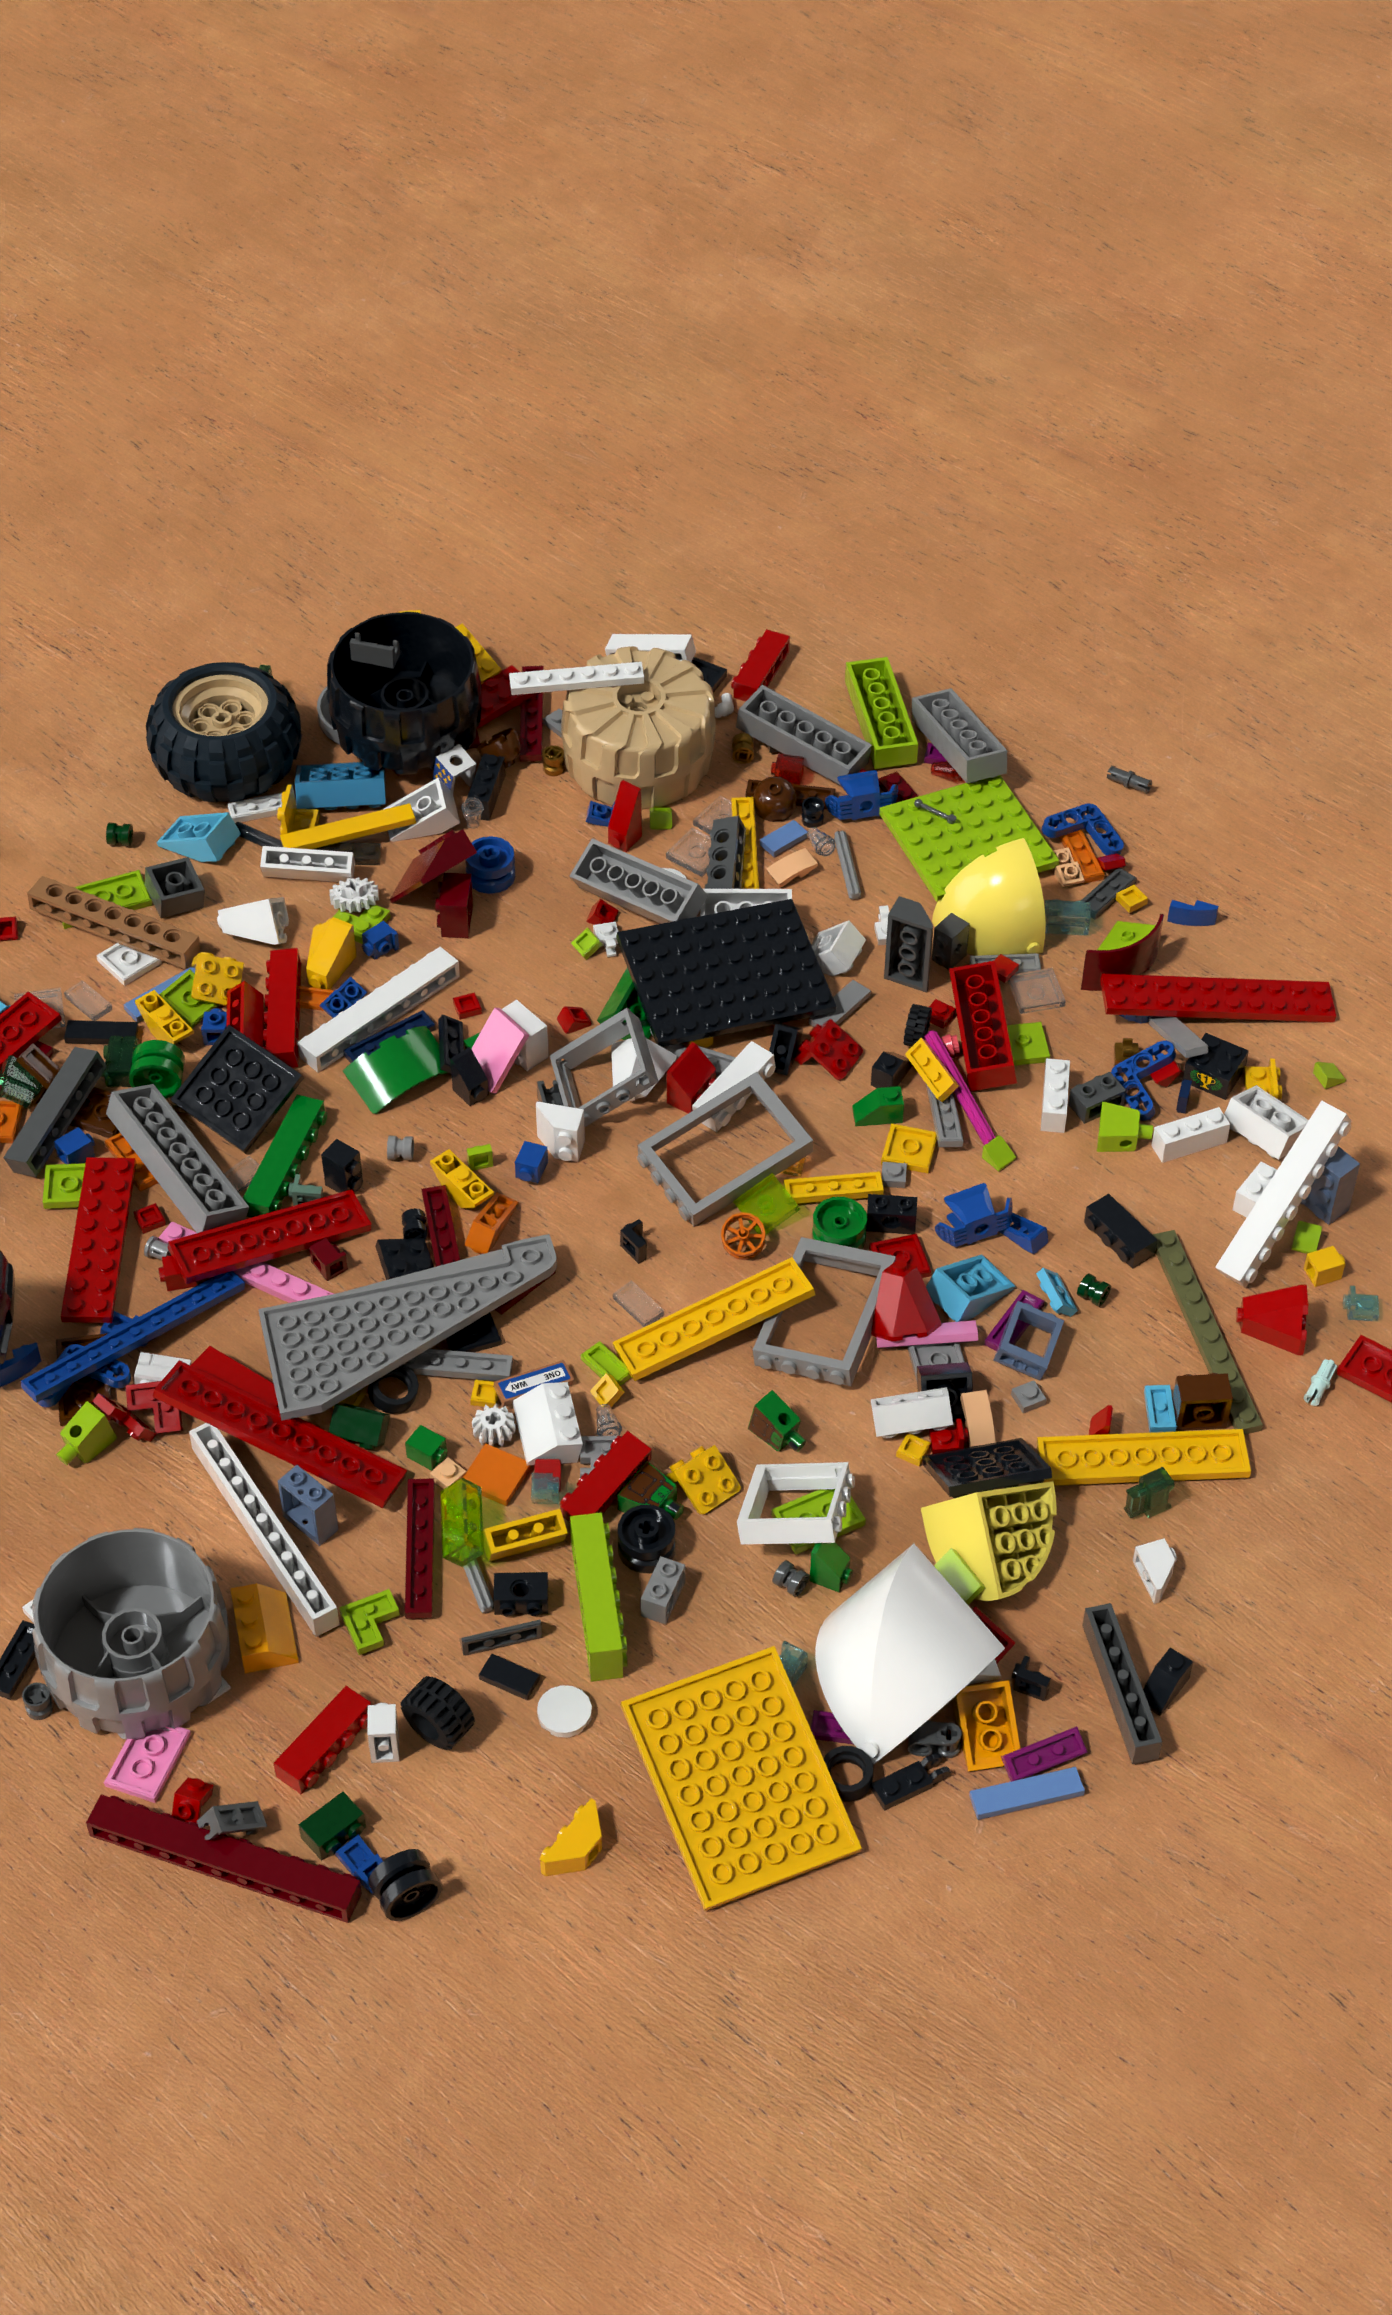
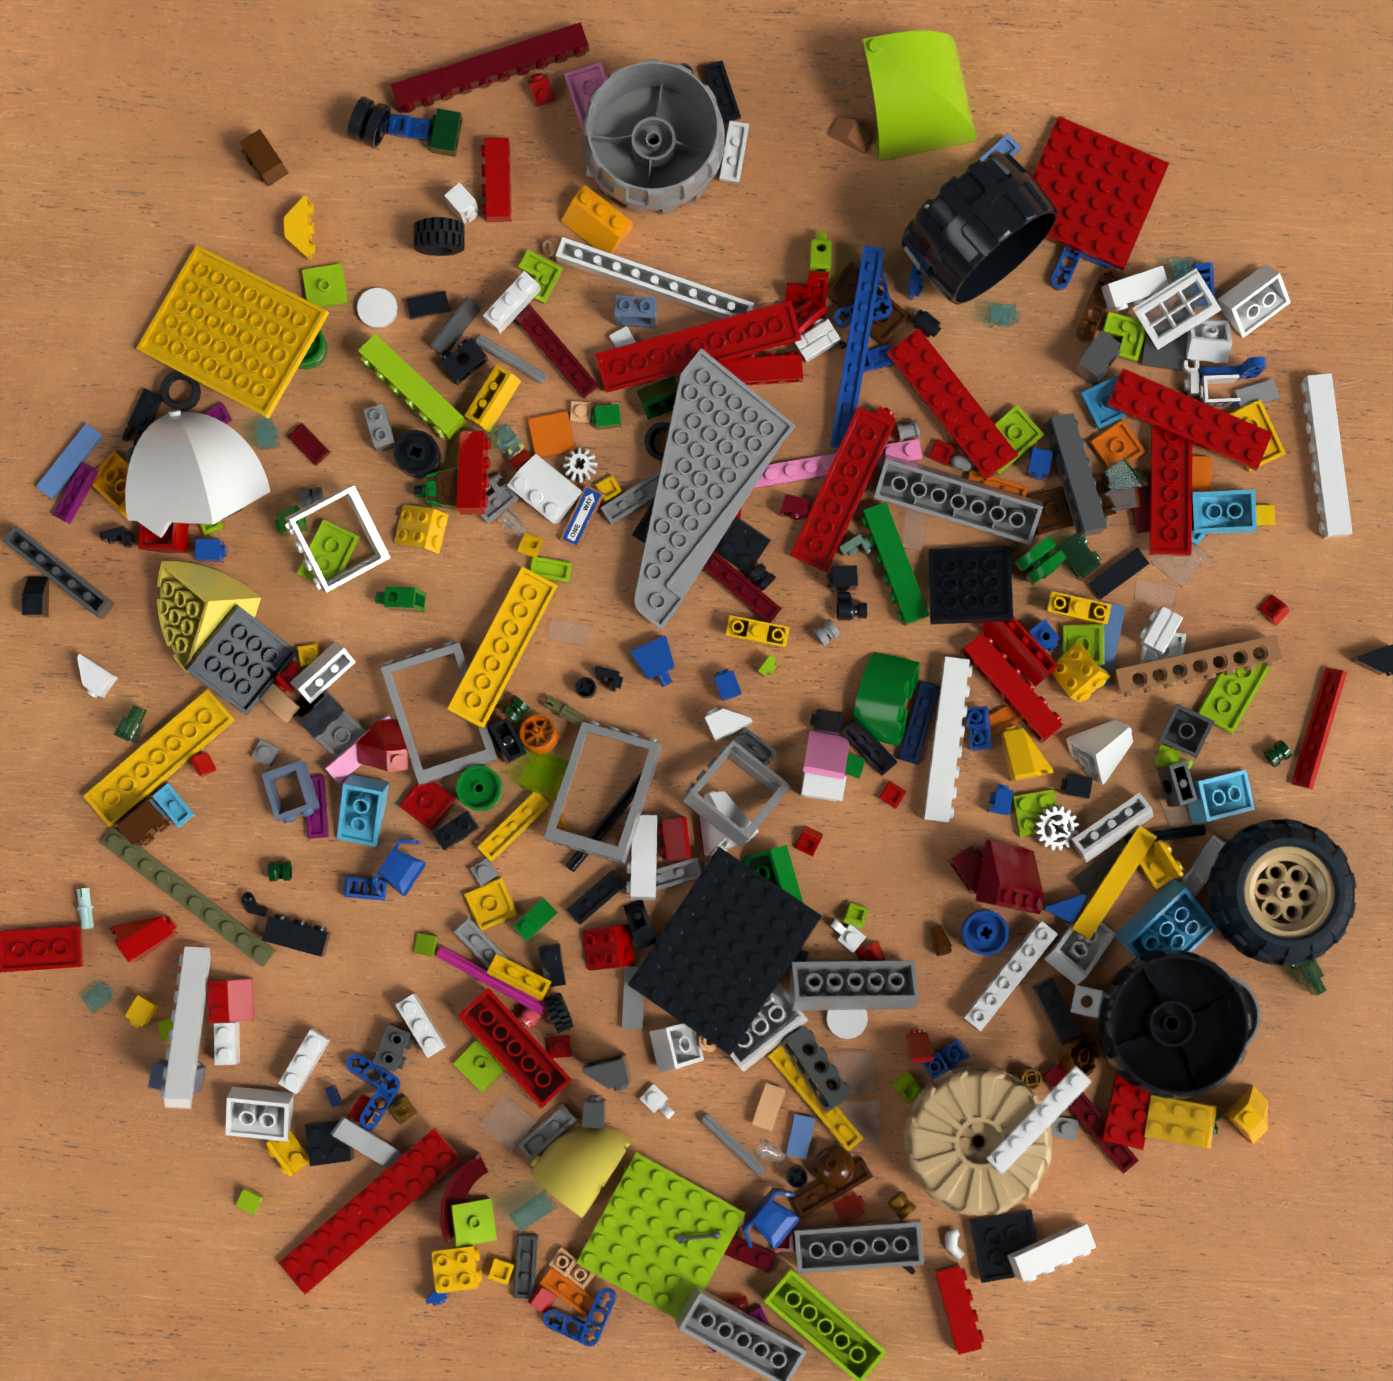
camera: 145 degrees right, 35 degrees up
(49, 1321) = (926, 323): none -> black brick
(66, 829) = (1319, 728): none -> red plate
(114, 962) = (1160, 630): none -> white brick
(142, 1195) = (961, 463): none -> light grey arm
(212, 886) = (1167, 755): none -> lime plate
(223, 853) = (1177, 783): none -> black brick
(233, 1819) = (498, 85): dark grey hinge -> none
(242, 858) = (1174, 815): none -> clear tile
(305, 911) = (1076, 786): none -> black brick
(331, 1636) = (551, 247): none -> light nougat plate
(347, 1508) = (622, 337): none -> white tile
(368, 1152) = (847, 609): none -> black piece
(374, 653) = (1203, 1013): dark grey hinge -> none
(401, 842) = (1067, 909): none -> blue slope
(422, 1599) = (512, 302): none -> white brick
(462, 1522) = (532, 371): clear neon green brick -> none
(472, 811) = (1040, 966): clear cone -> none
(490, 1223) = (713, 619): orange slope -> none
(512, 825) = (1009, 975): none -> white brick
(533, 884) = (940, 943): none -> reddish brown cone
(553, 1934) = (263, 158): none -> reddish brown brick
(576, 1226) = (655, 660): none -> blue torso
(601, 1771) = (325, 285): none -> lime plate
(664, 1245) = (583, 687): none -> black wheel
(702, 1244) = (563, 710): none -> olive axle
(733, 1141) = (606, 823): none -> black axle
(745, 1270) = (519, 705): none -> dark green wheel
(750, 1631) = (309, 444): none -> dark red tile
(779, 1242) = (506, 740): none -> black brick
(807, 1091) = (596, 897): none -> black plate
(959, 1576) = (200, 563): lime tile -> none
(1005, 968) = (542, 1121): red tile -> none
(1056, 1291) = (303, 850): medium azure plate -> none
(1120, 1129) = (357, 1030): lime torso -> none
(1146, 1283) = (251, 905): none -> black arm
(1177, 911) = (456, 1269): none -> yellow bracket
(1224, 1220) = (230, 1000): none -> slope

